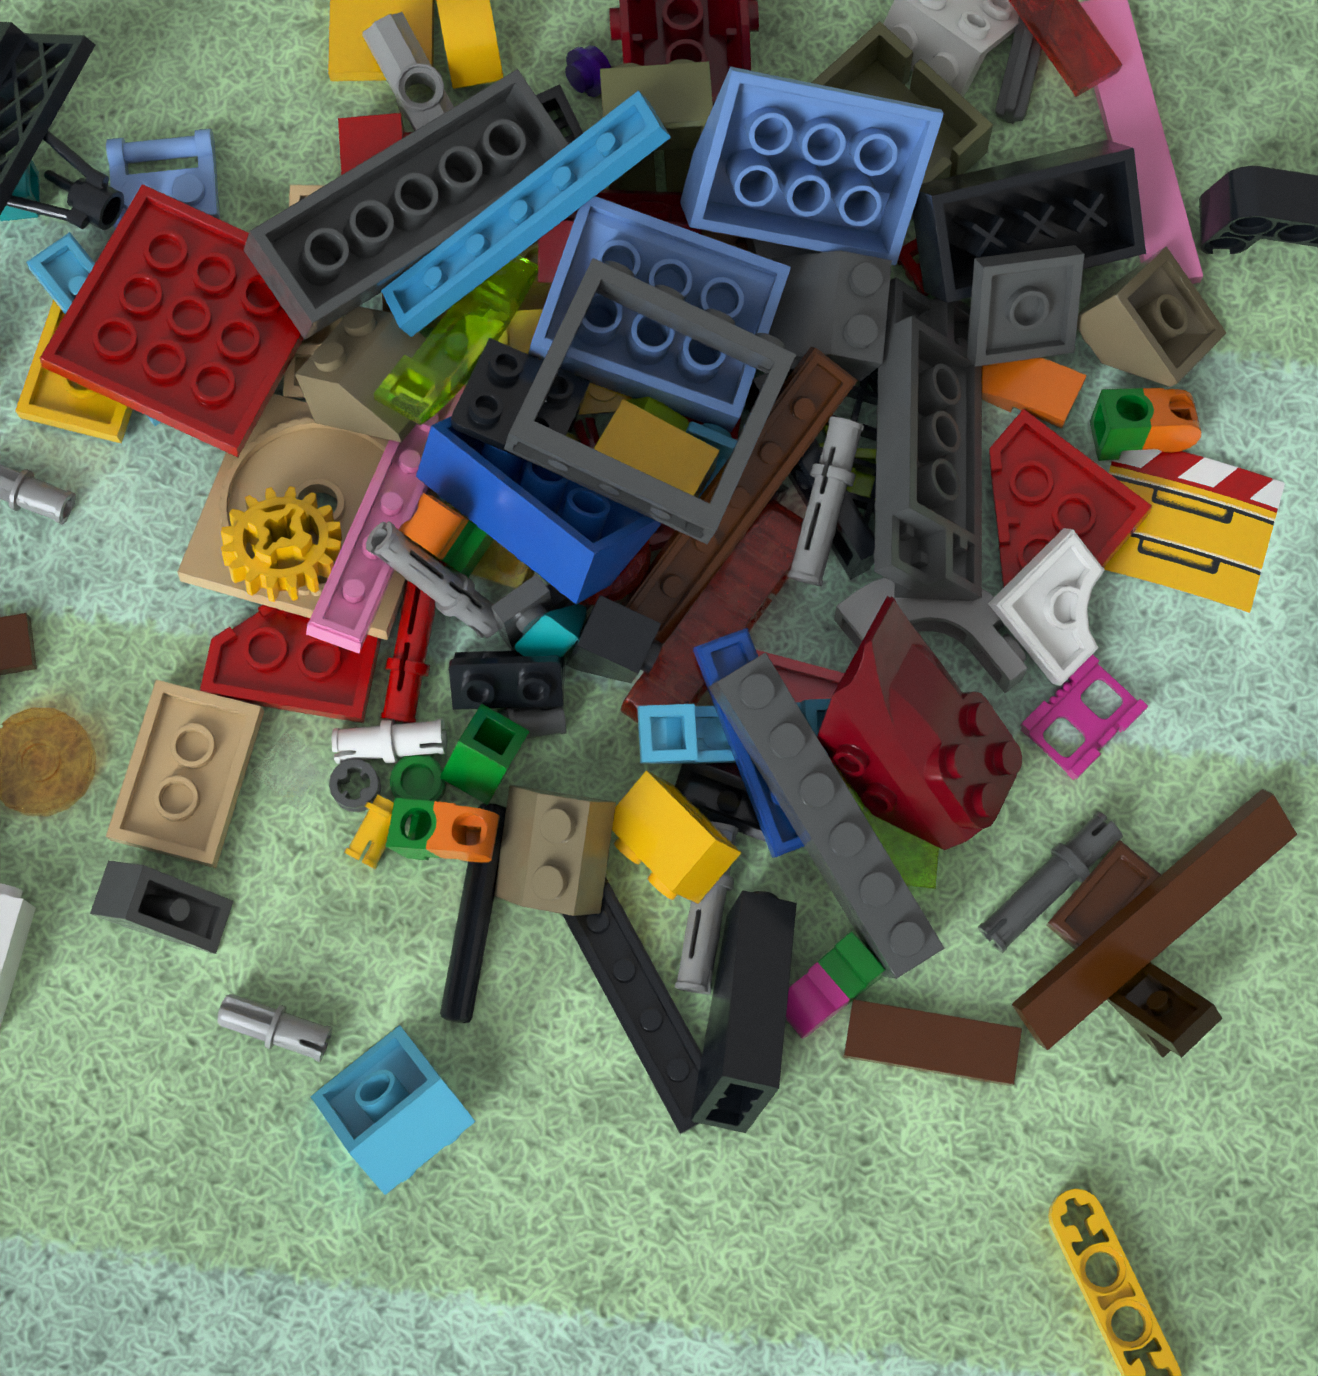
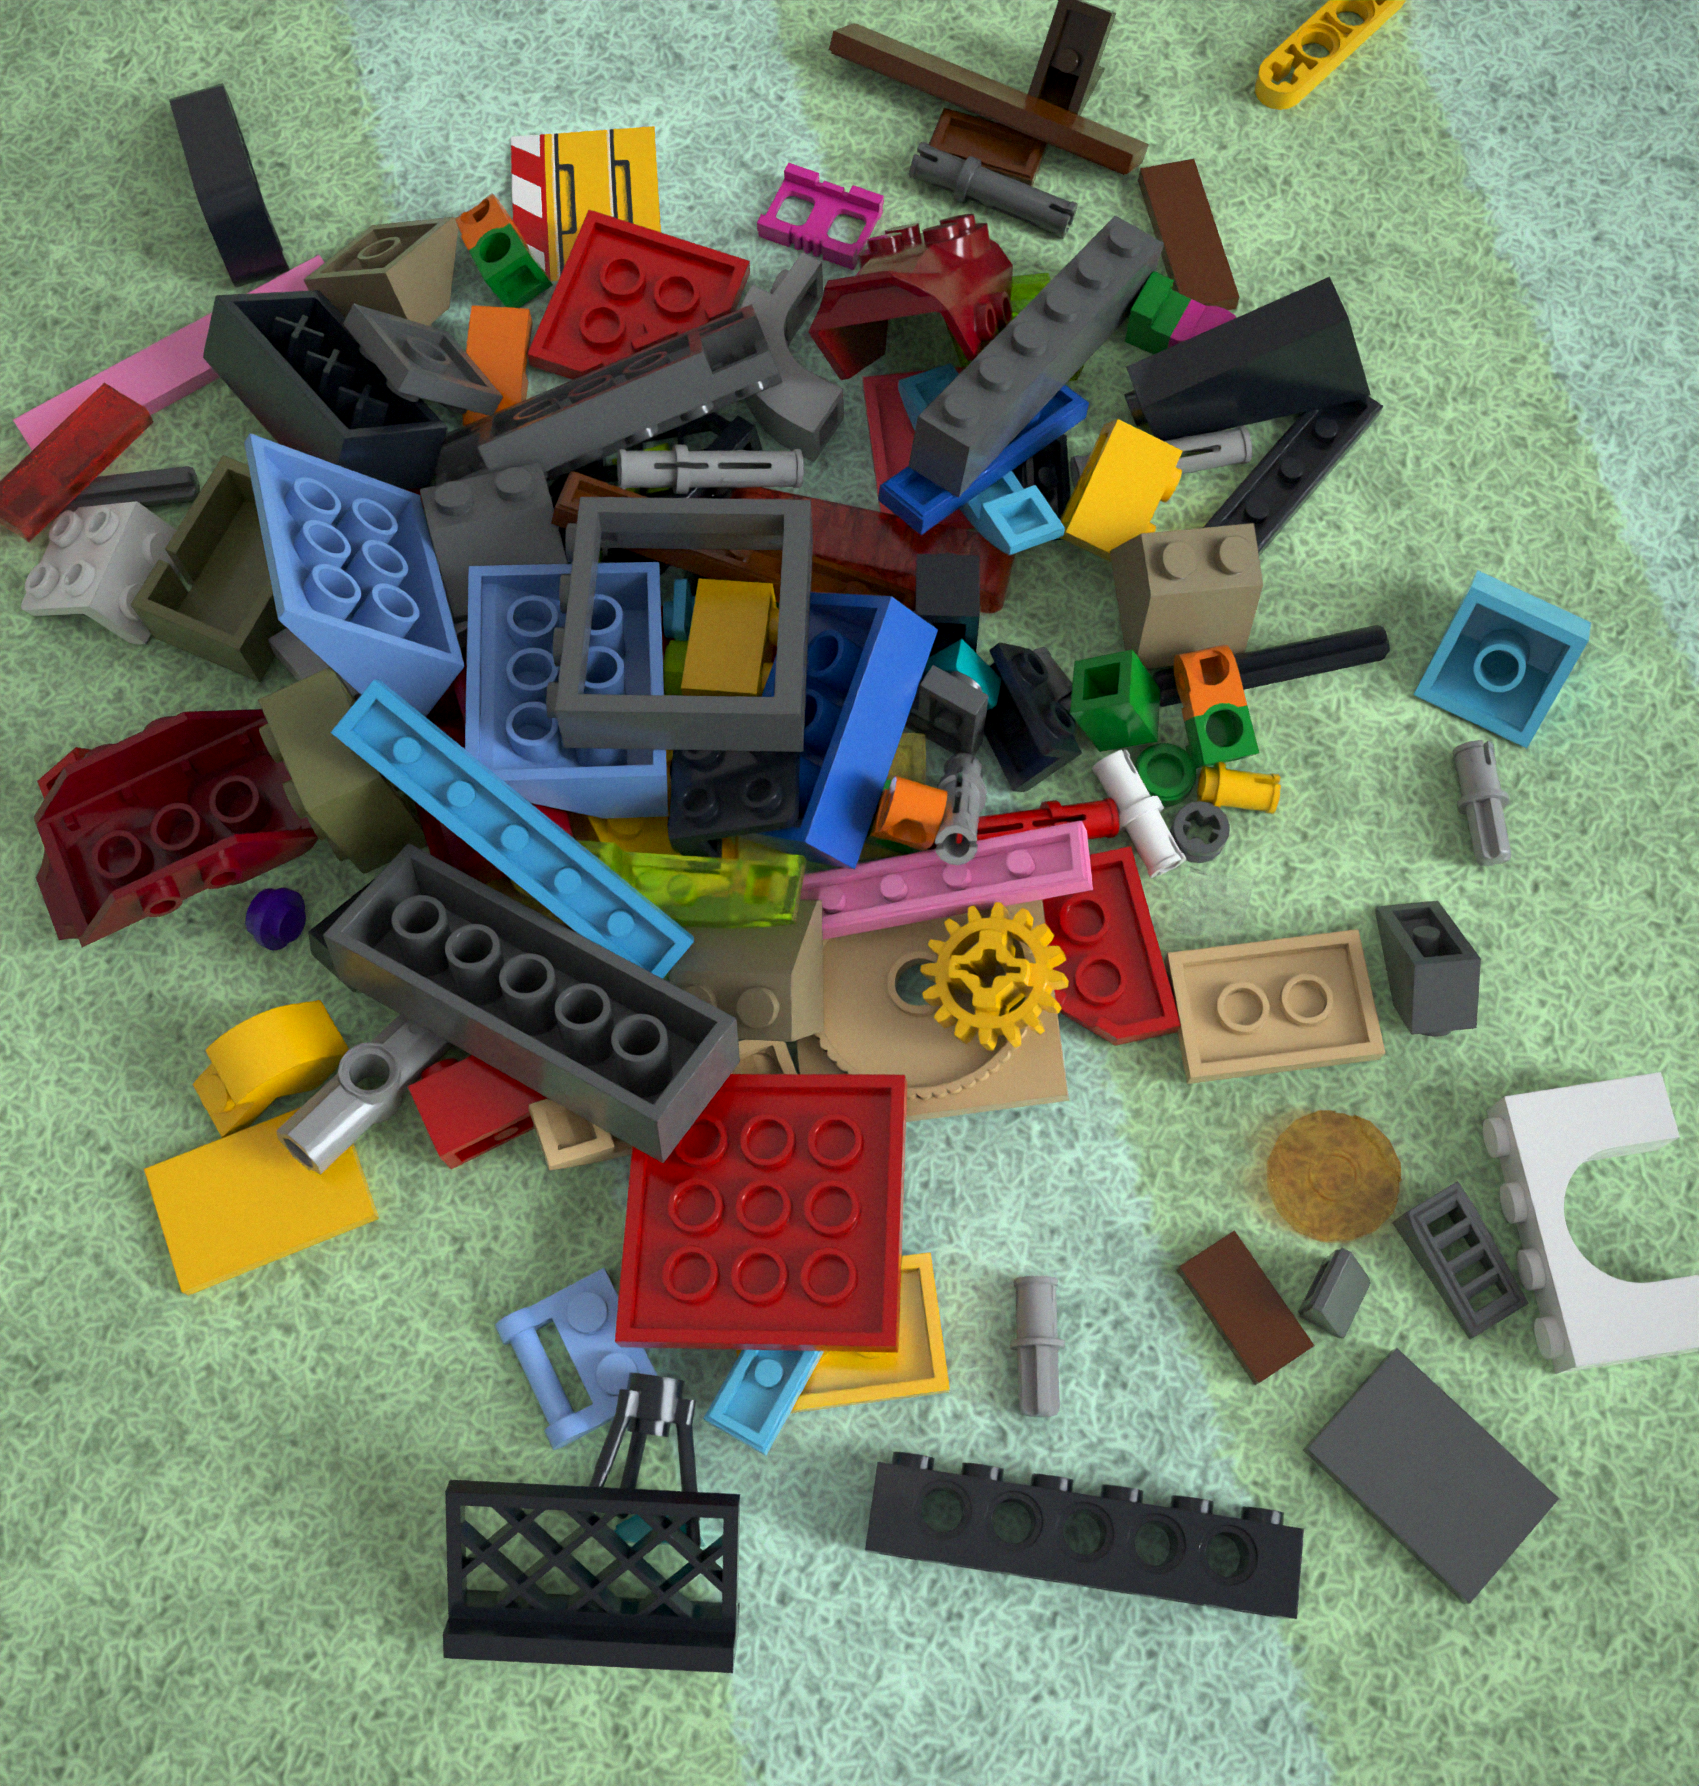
camera: 115 degrees left, 5 degrees down
(1049, 606) = (732, 254): white tile -> none

